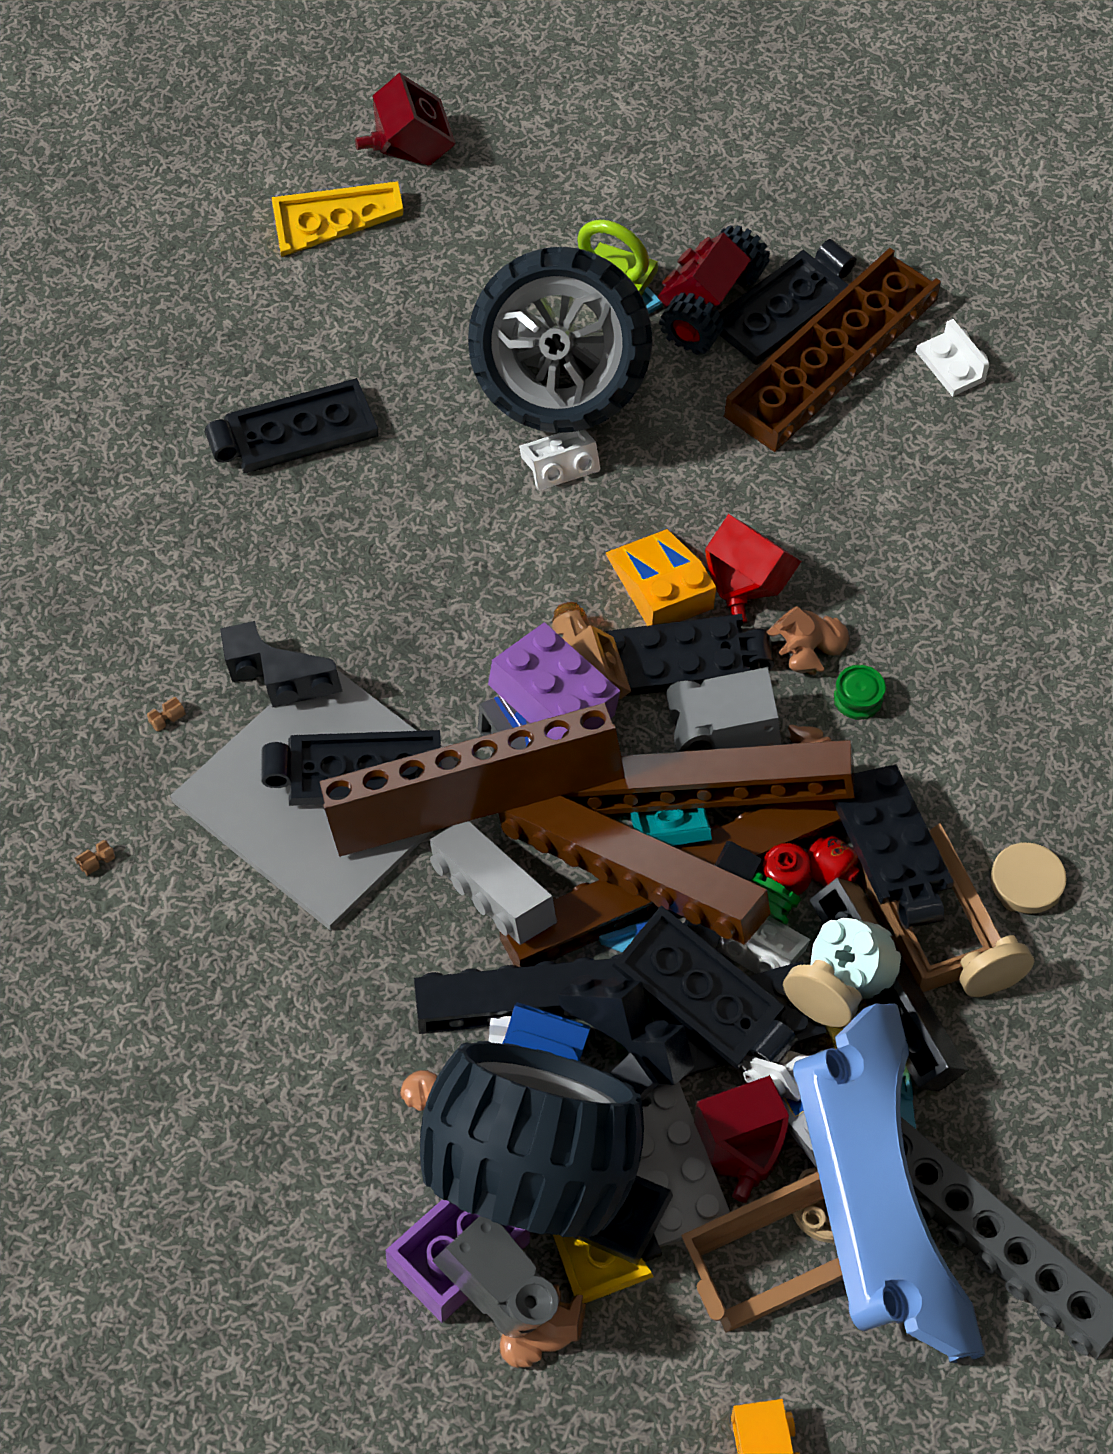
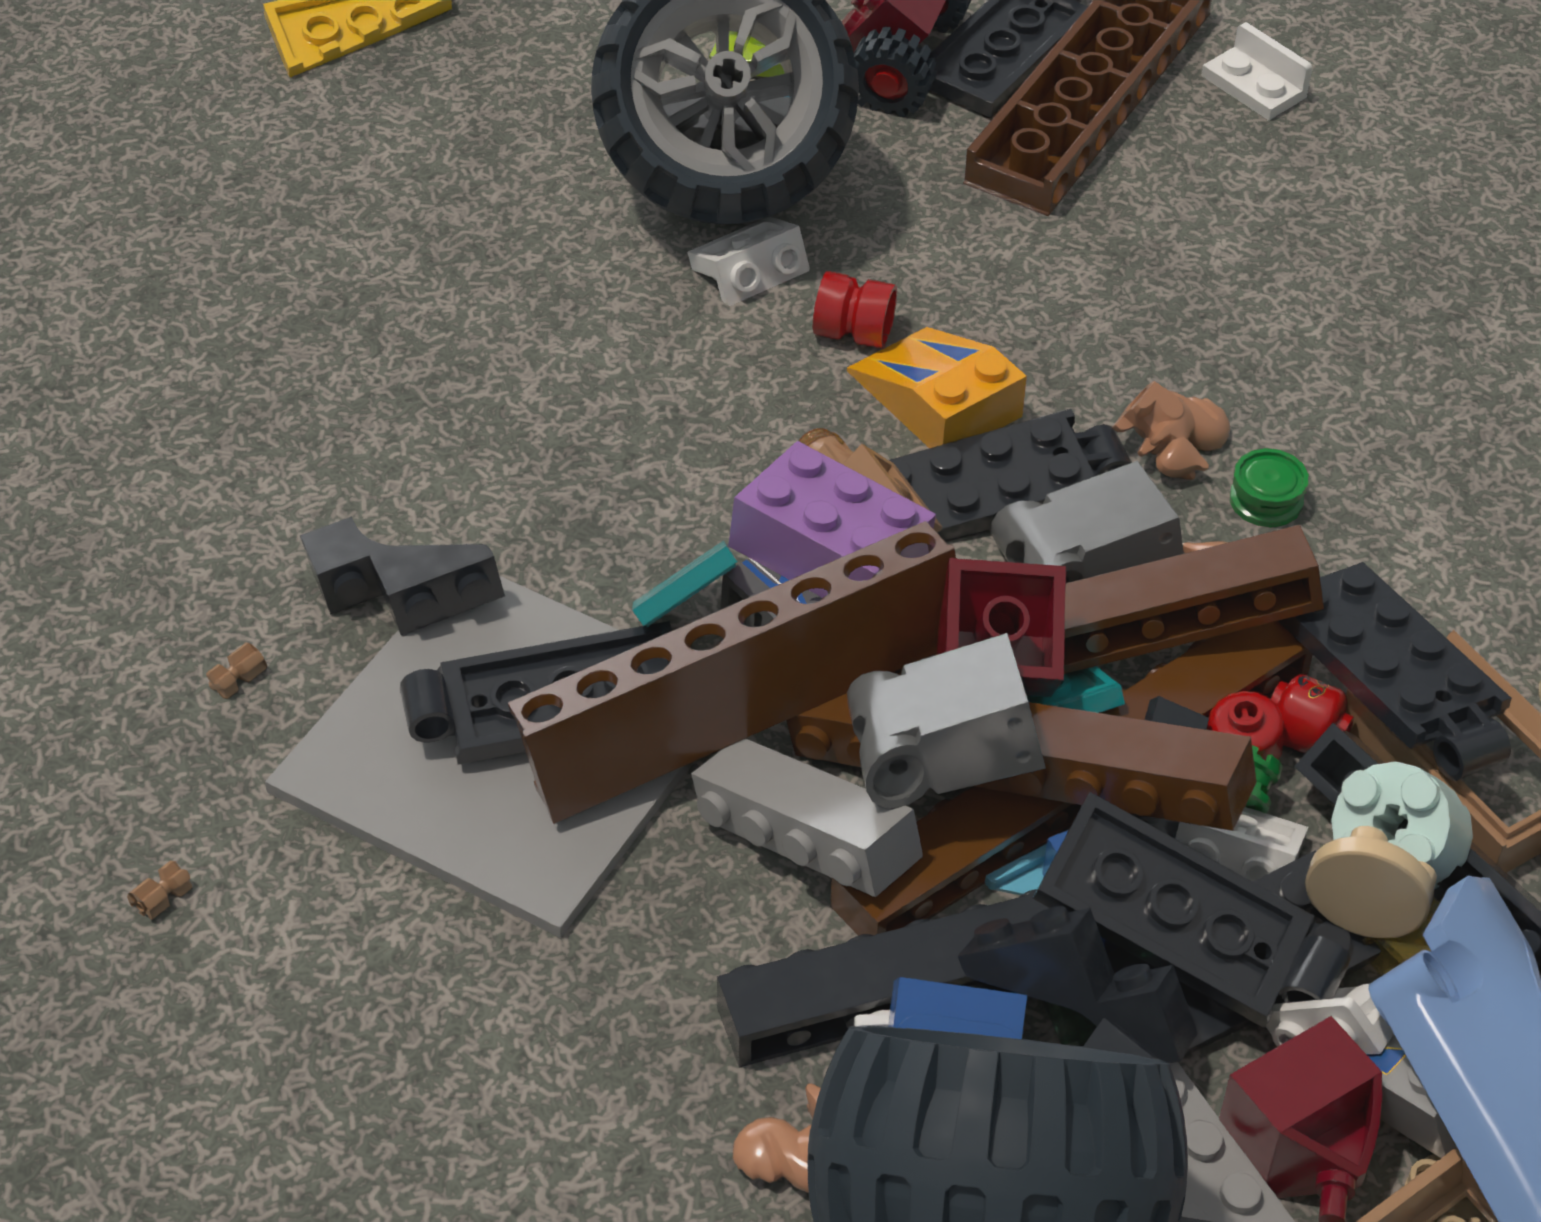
camera: 10 degrees left, 10 degrees down
(293, 427) = (352, 272): black hinge -> none
(454, 706) = (684, 584): none -> teal tile
(584, 844) = (943, 723): none -> dark grey piece
(616, 510) = (847, 308): none -> red wheel
(638, 780) = (1014, 599): none -> dark red slope
(746, 564) = (1063, 340): red piece -> none

